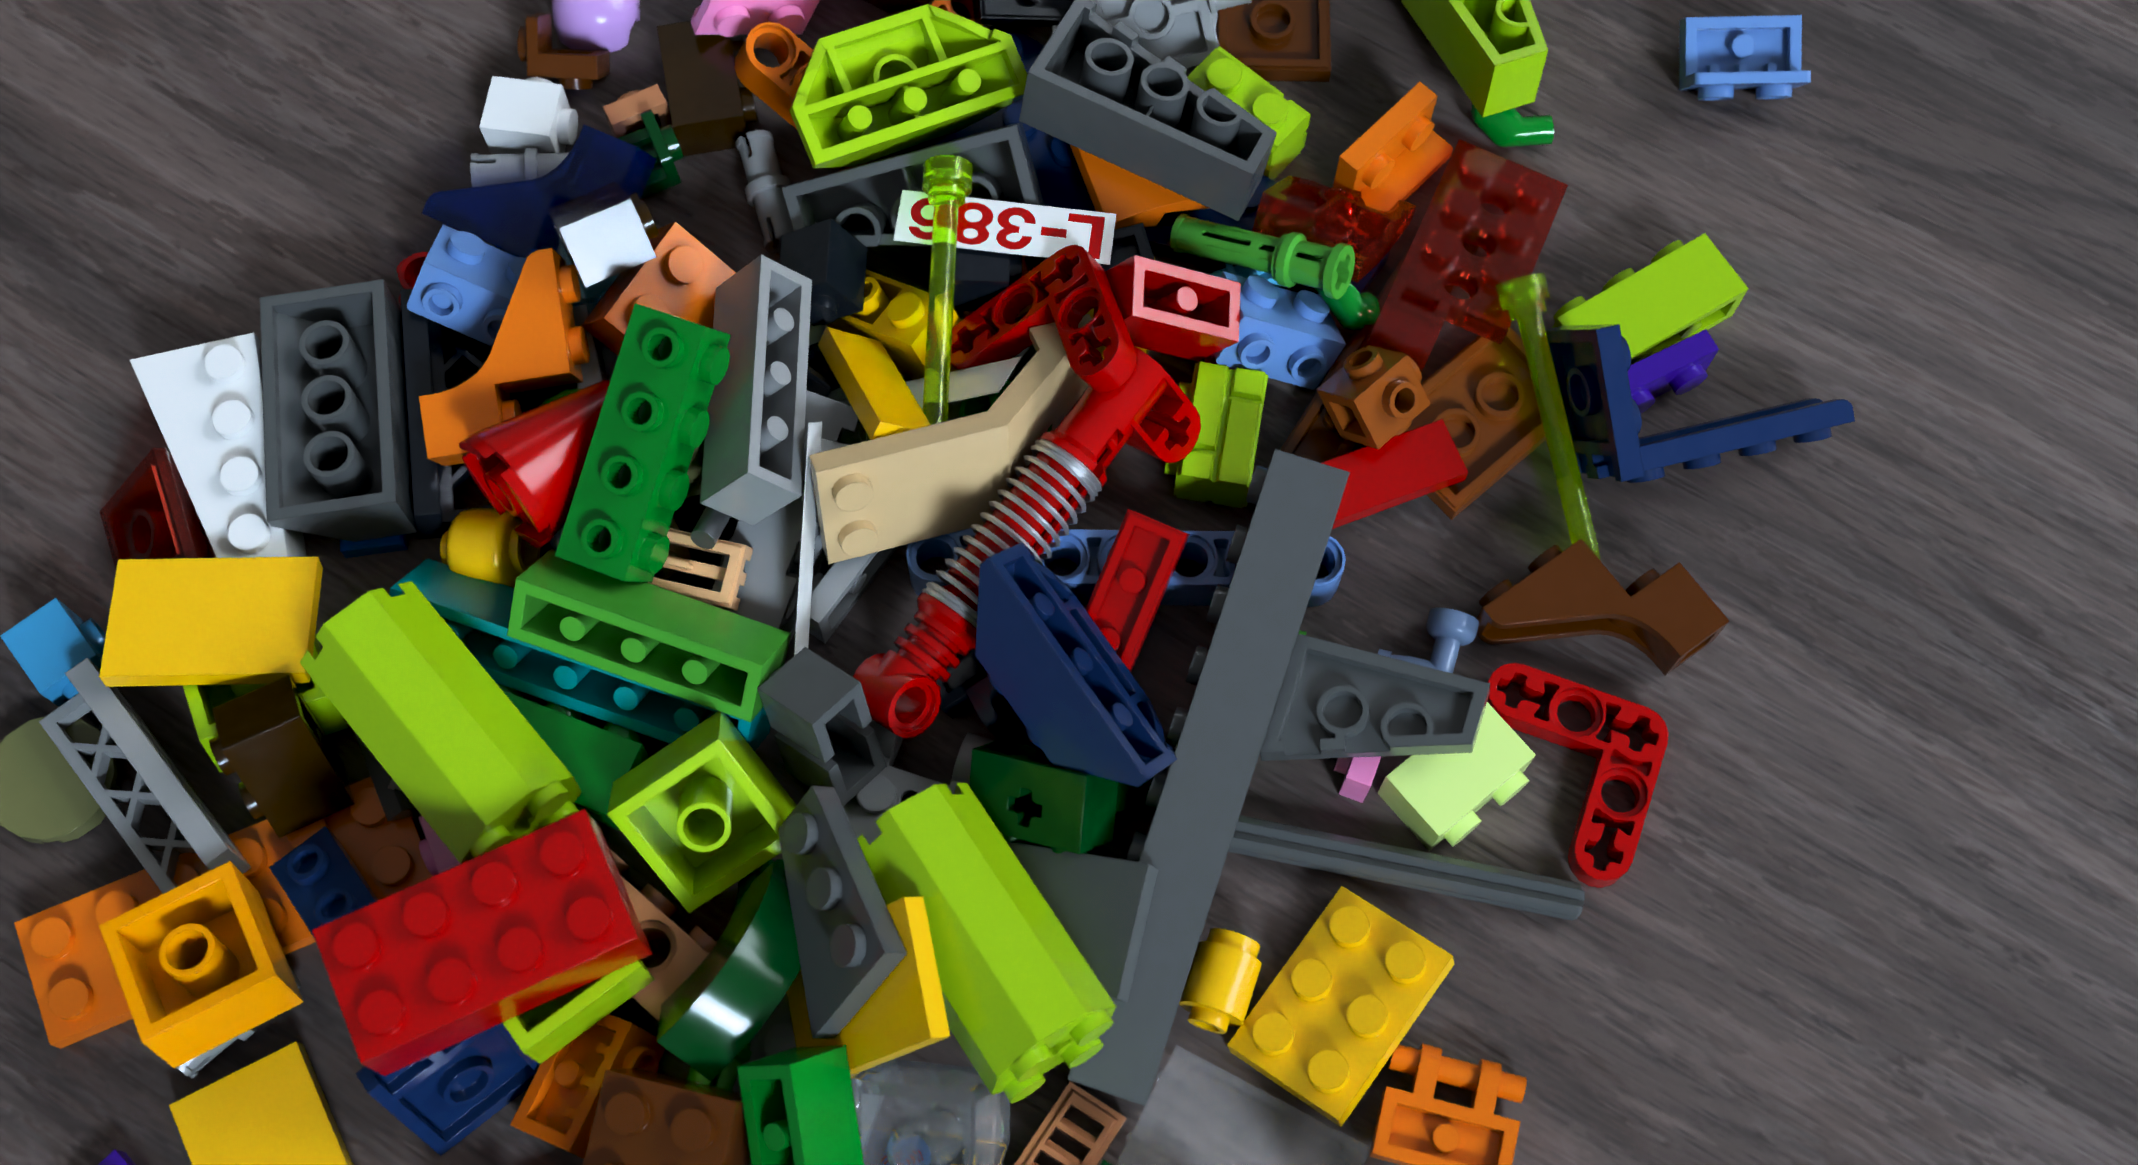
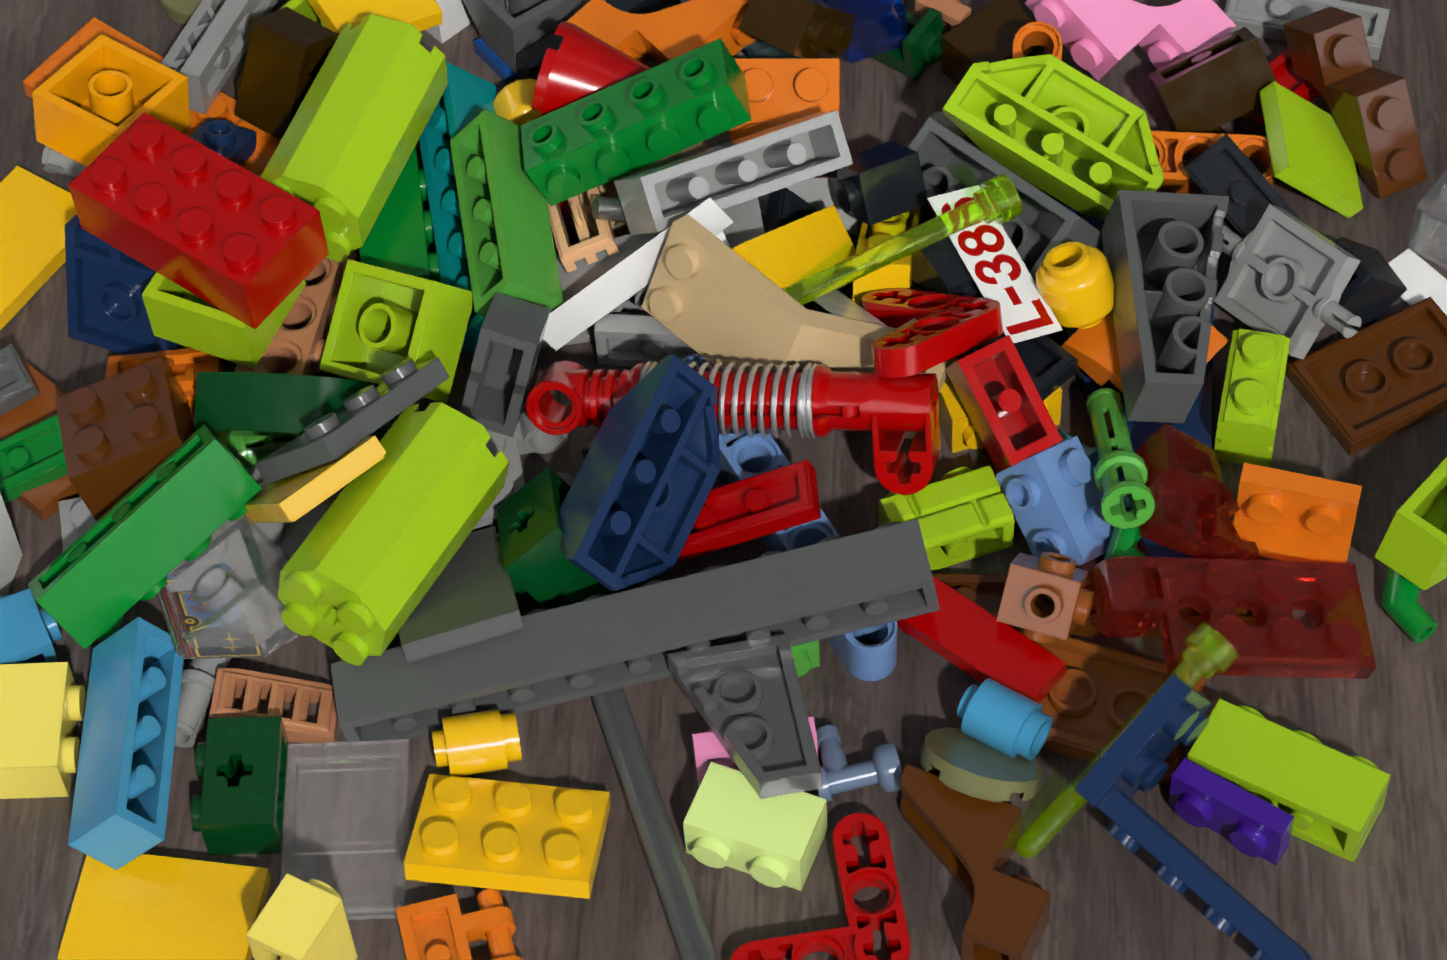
camera: 65 degrees right, 15 degrees down
(1075, 172) = (1076, 284): none -> yellow head
(1475, 502) = (1004, 719): none -> dark azure brick
(1508, 546) = (977, 768): none -> olive tile

